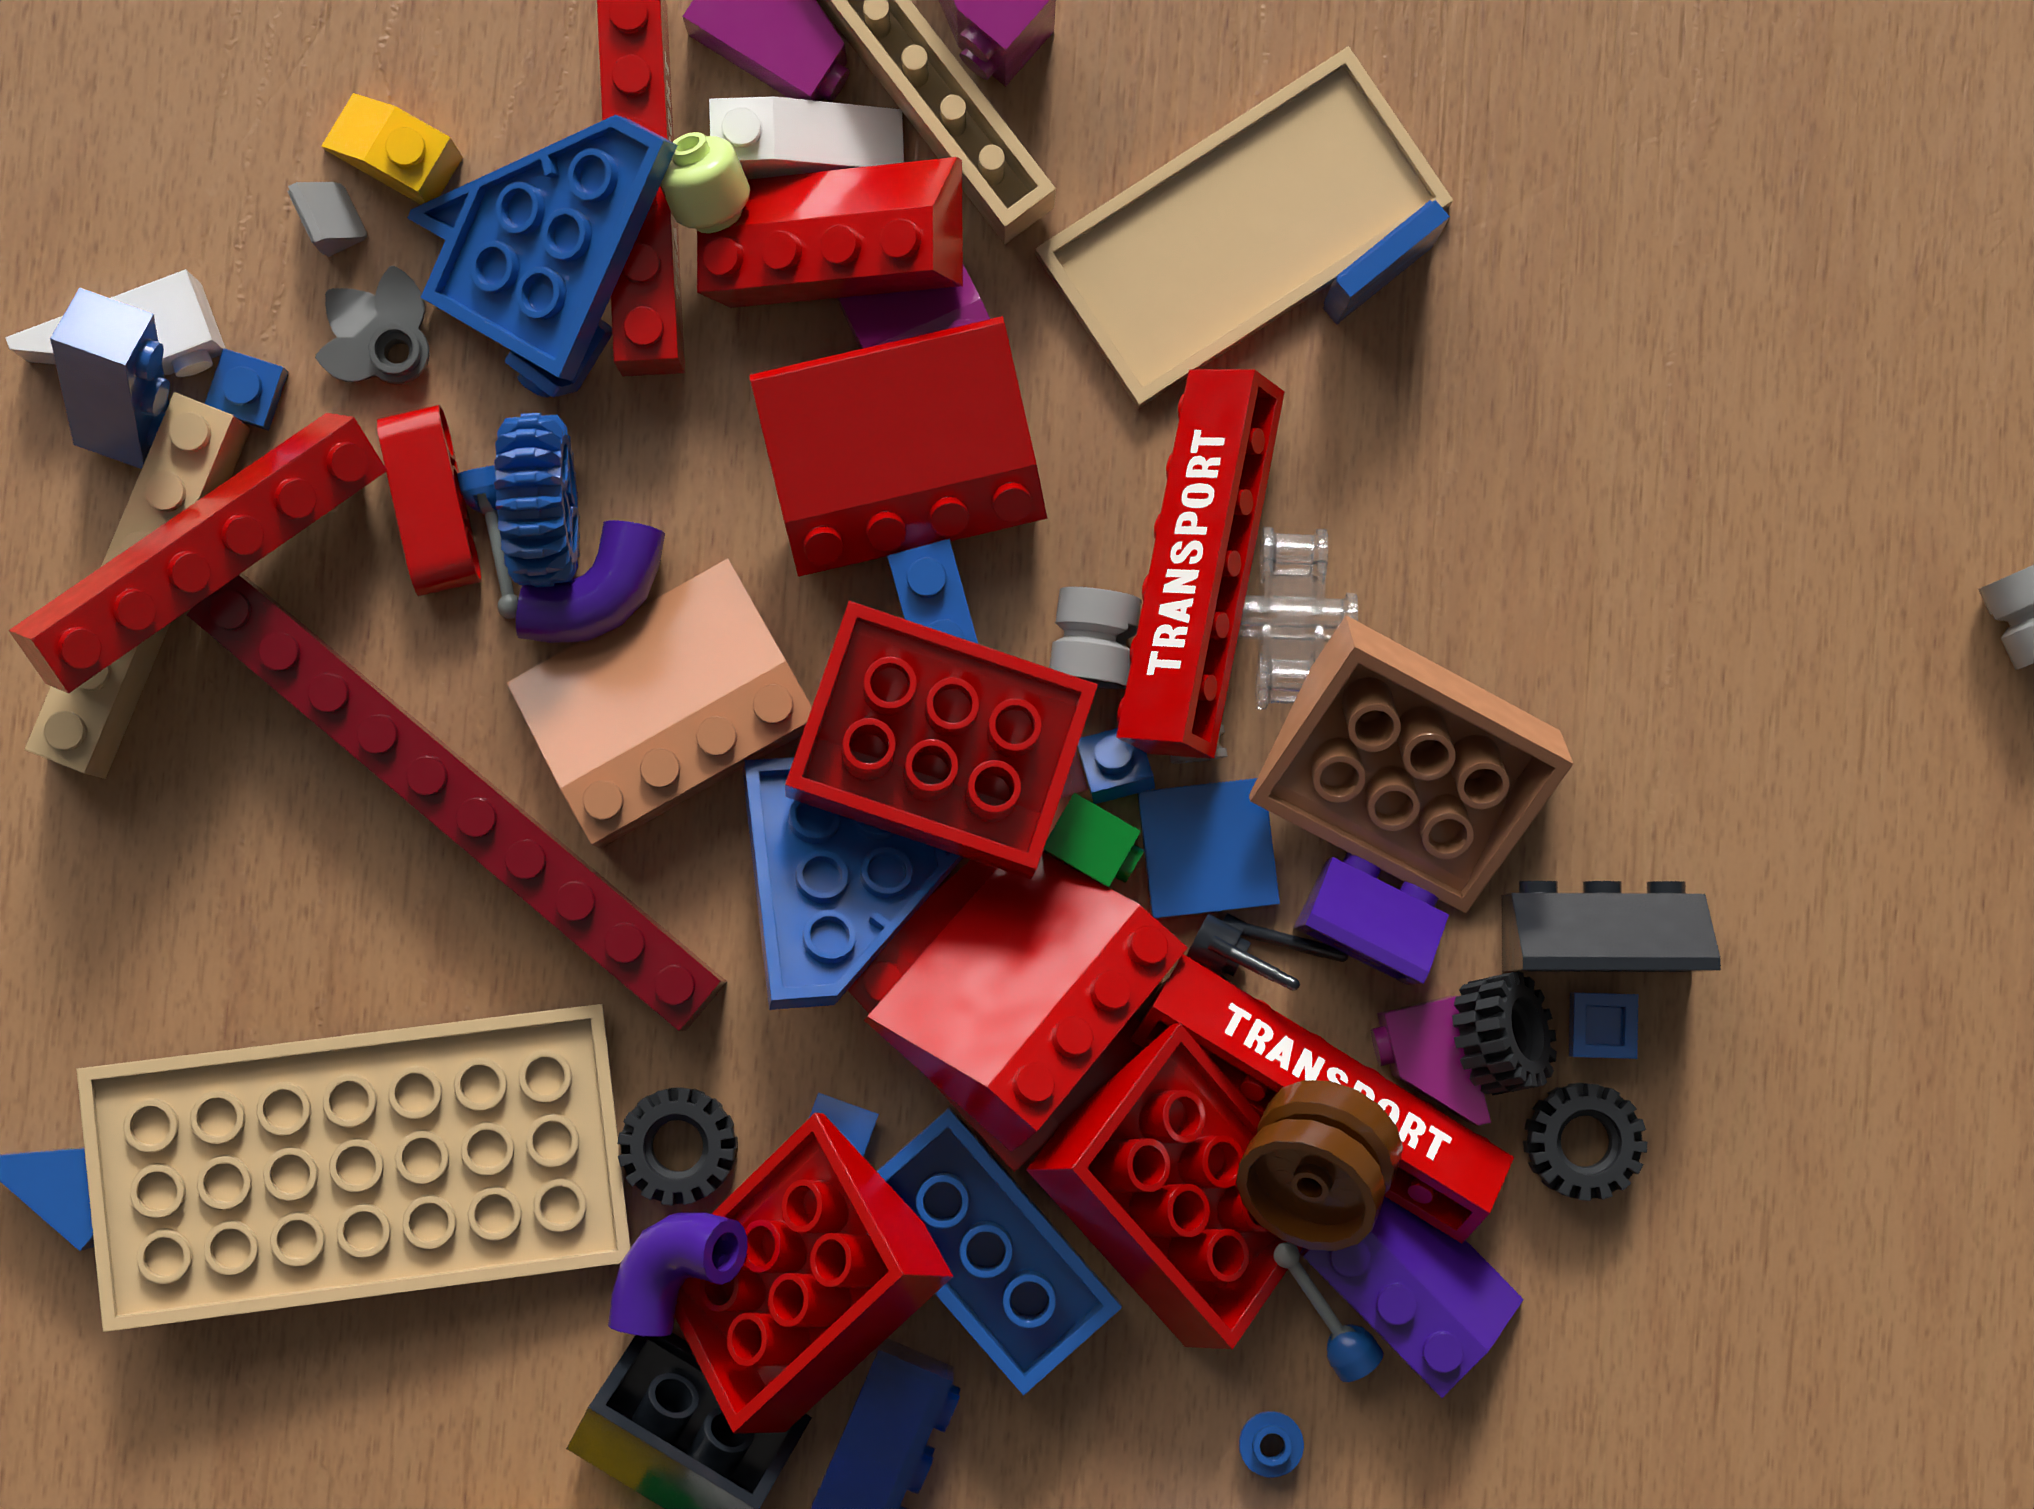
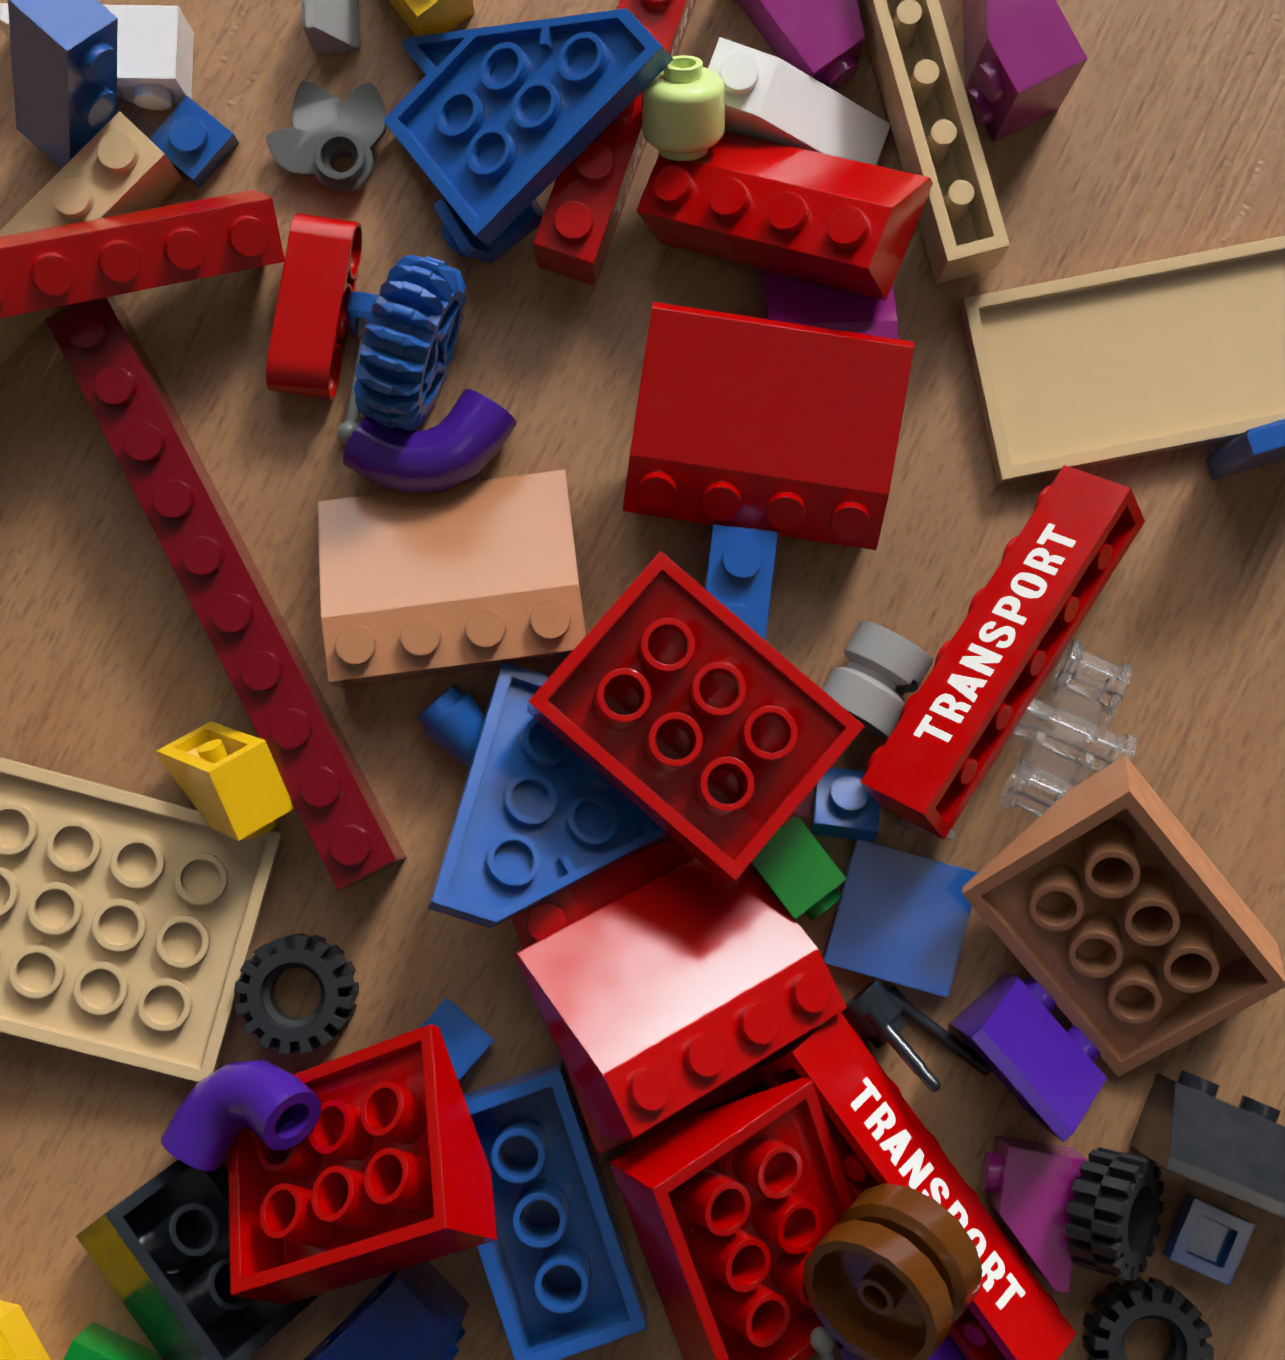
camera: 30 degrees right, 0 degrees up
(534, 972) = (228, 779): none -> yellow slope
(721, 837) = (453, 723): none -> blue cone

